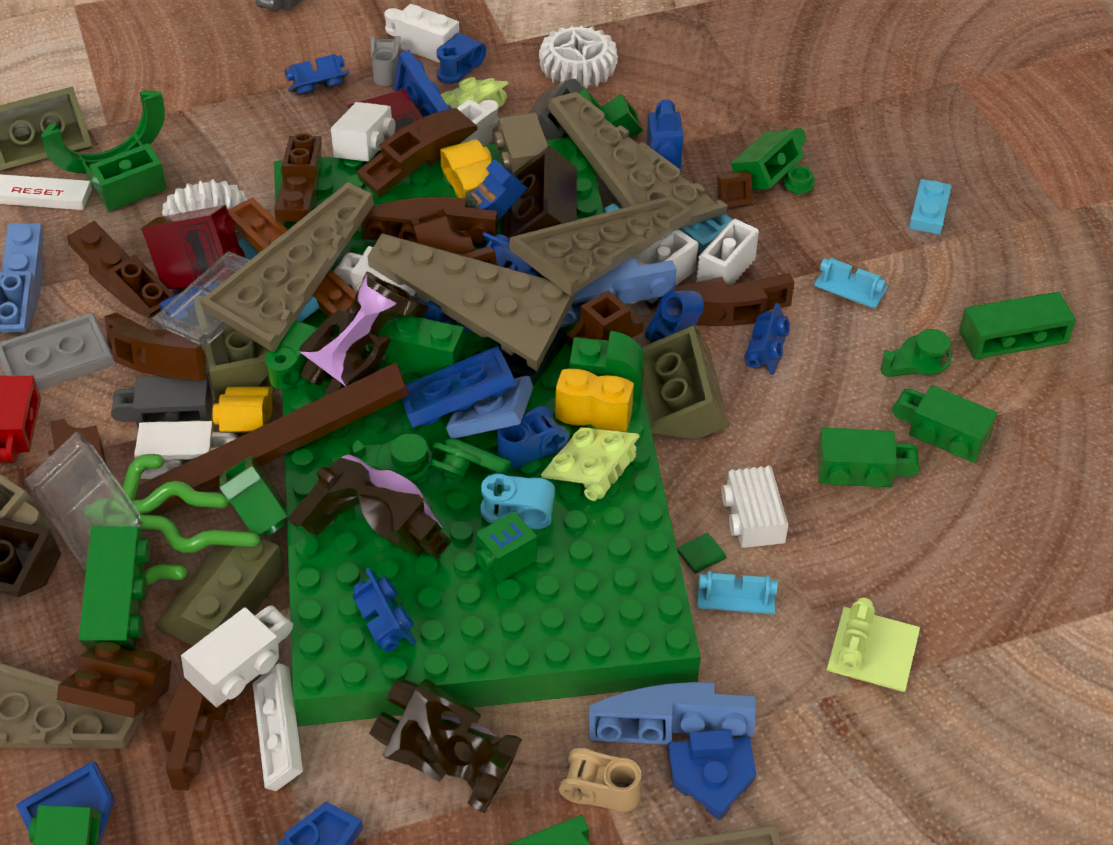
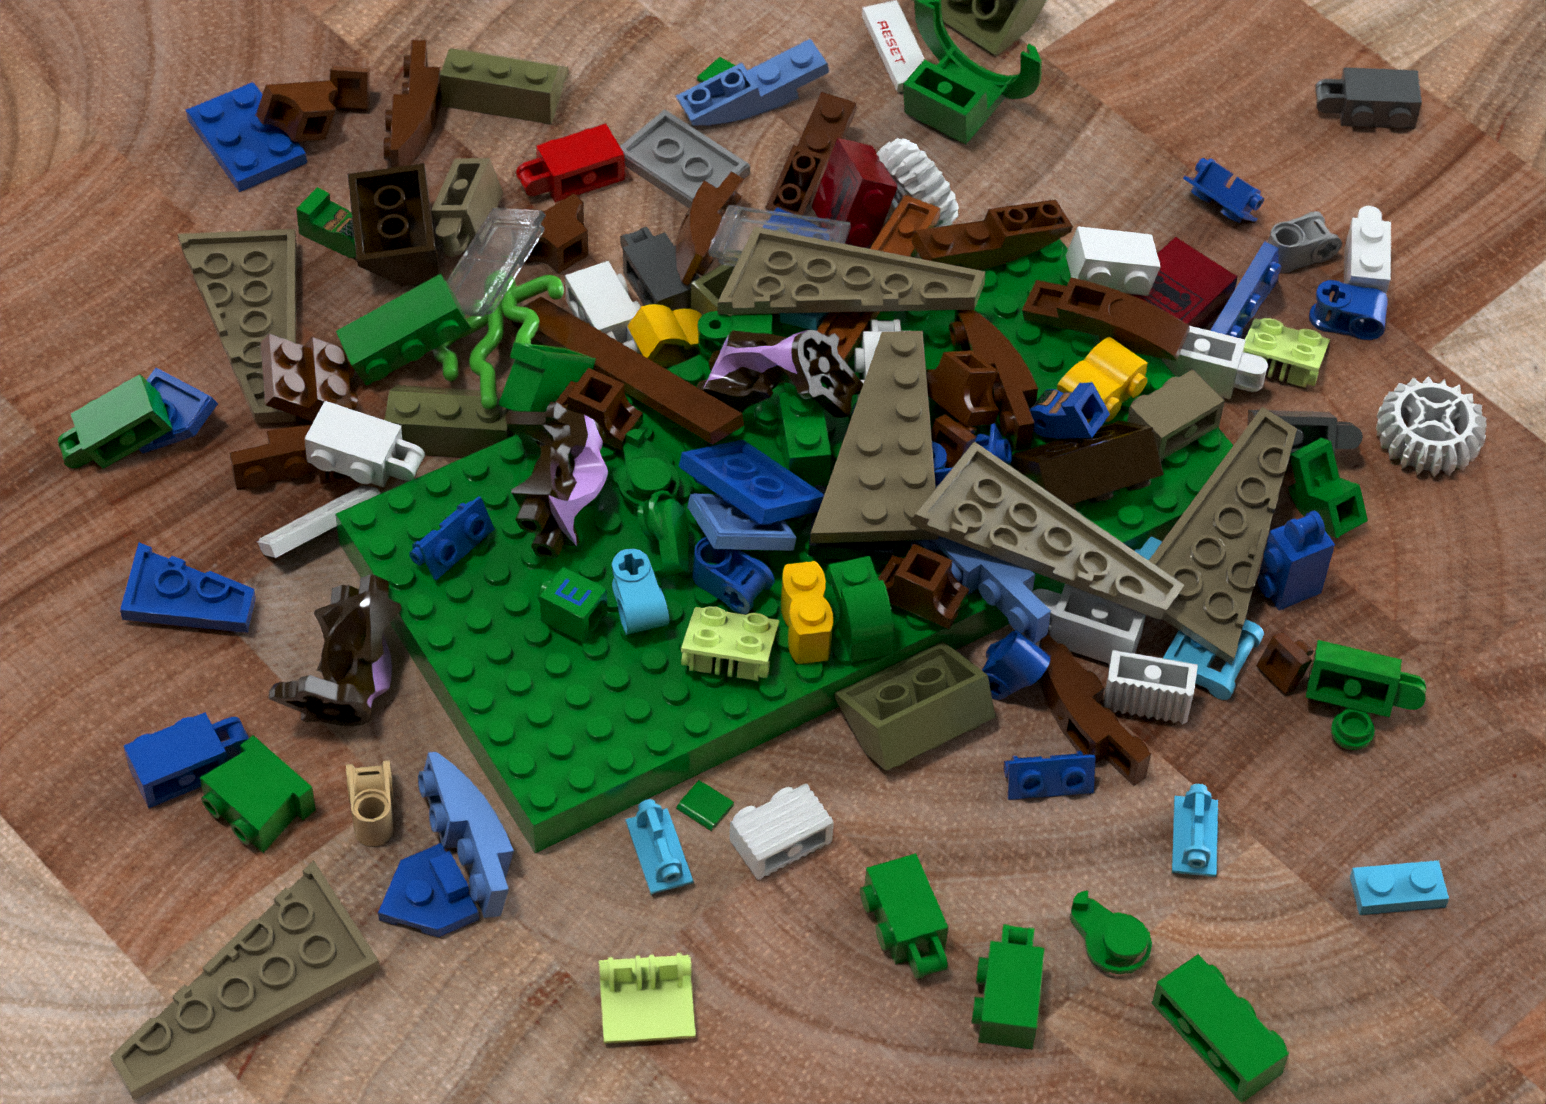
camera: 65 degrees right, 5 degrees up
(304, 459) = (605, 403): none -> reddish brown brick

